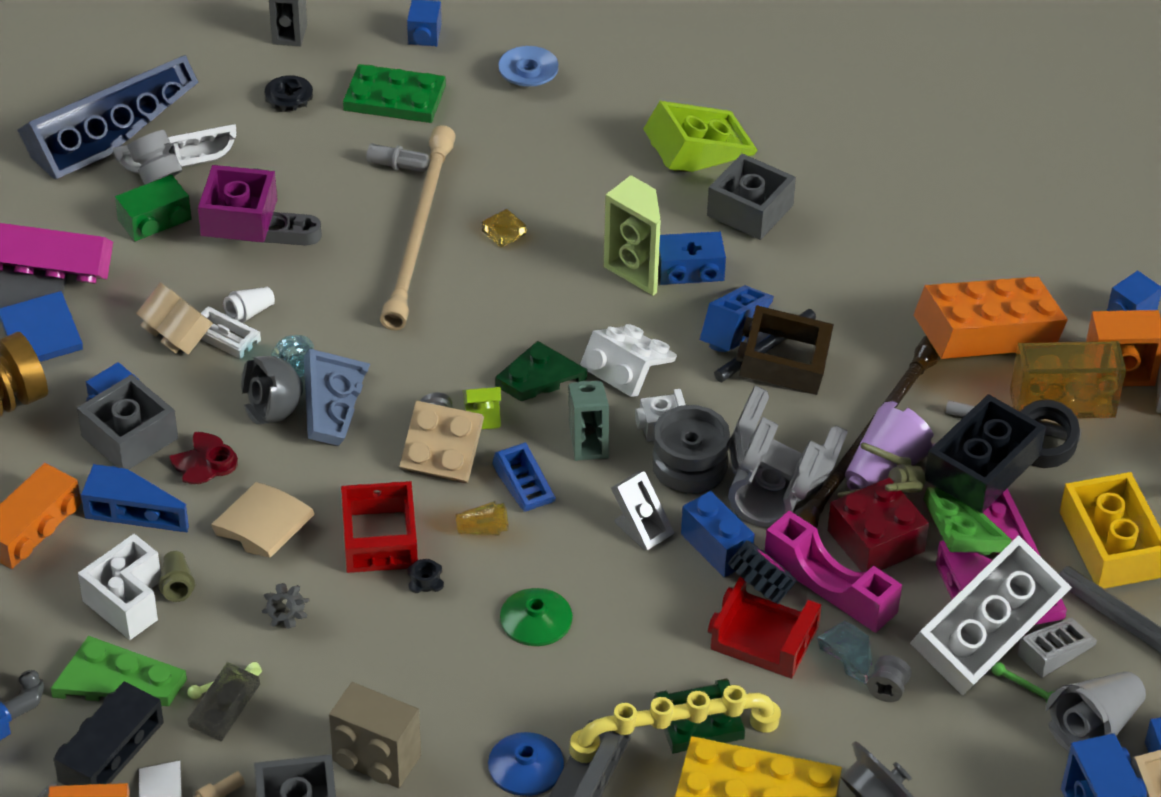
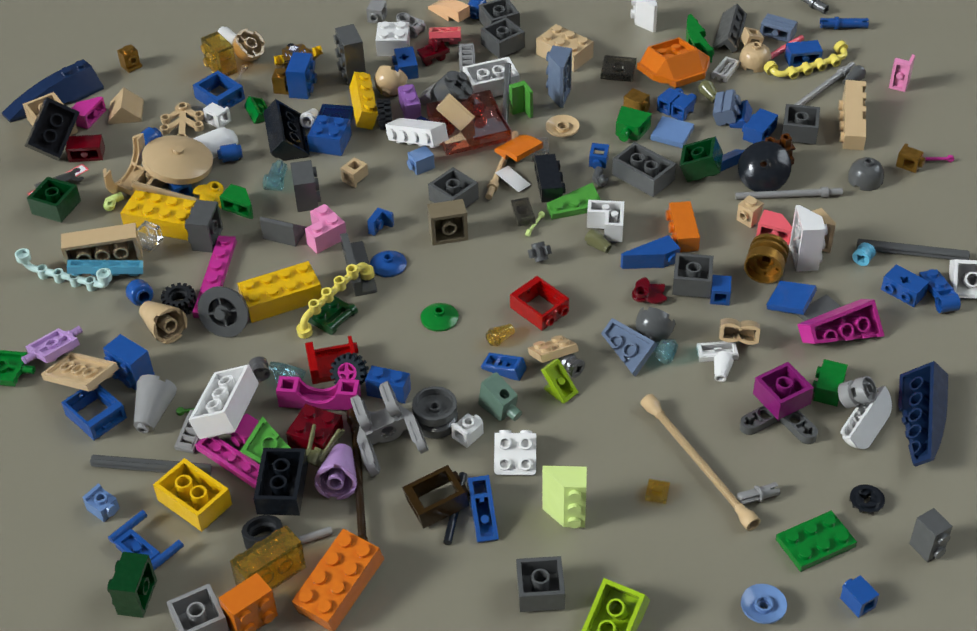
camera: 145 degrees right, 0 degrees up
(263, 519) = (592, 280): tan slope -> none
(425, 576) = (499, 300): black plate -> none
(538, 372) = (552, 421): dark green wing -> none
(642, 512) = (432, 374): light grey slope -> none
(691, 258) = (538, 528): blue brick -> none

